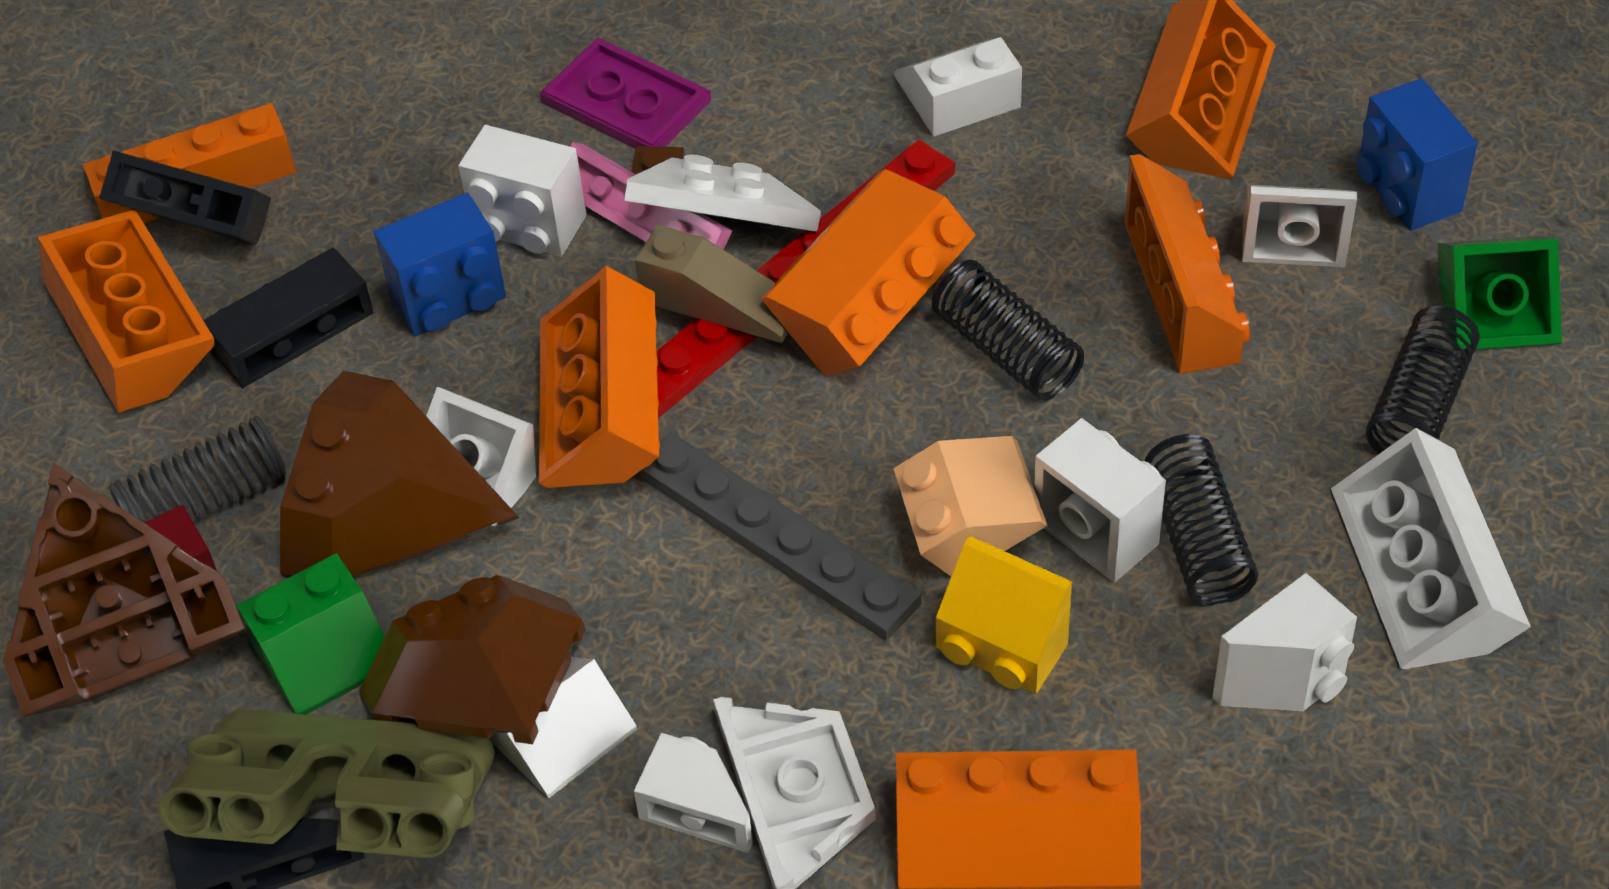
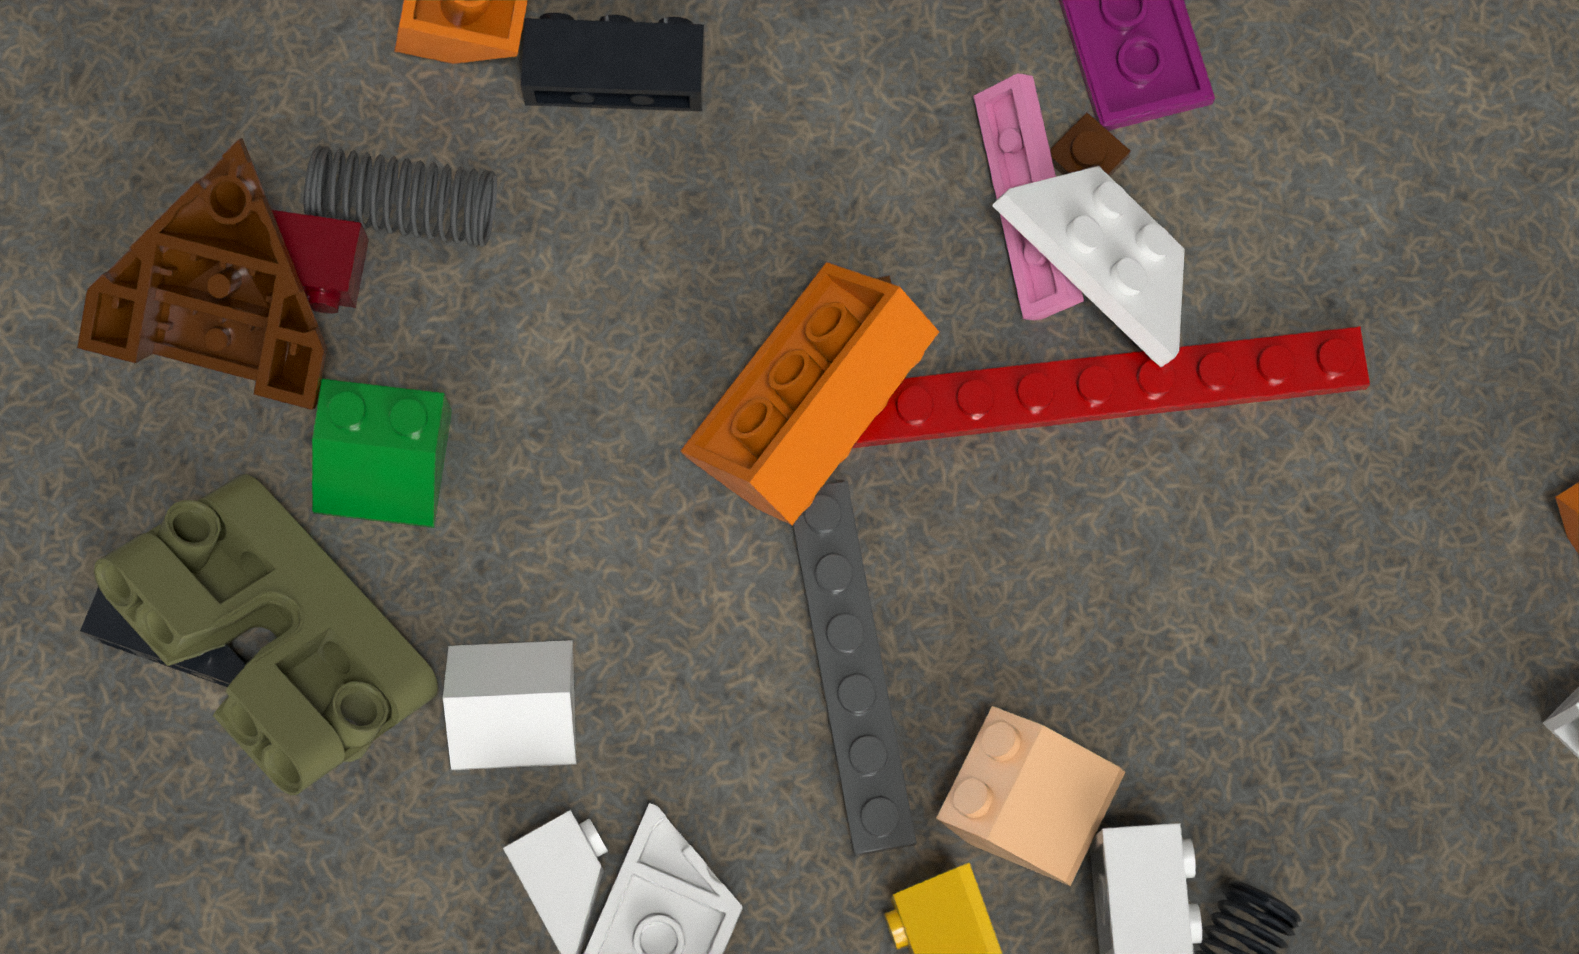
camera: 35 degrees right, 25 degrees up
(377, 483) = (543, 337): reddish brown wedge -> none
(441, 264) = (780, 129): blue brick -> none
(475, 660) = (482, 609): reddish brown wedge -> none
(490, 440) = (641, 373): white slope -> none
(525, 189) = (922, 99): white brick -> none
(706, 283) = (1005, 366): dark tan slope -> none
(867, 271) = (1163, 462): orange slope -> none
(963, 85) = (1462, 288): white slope -> none
(1046, 360) = (1254, 710): black piece -> none
(1182, 269) = (1463, 700): orange slope -> none

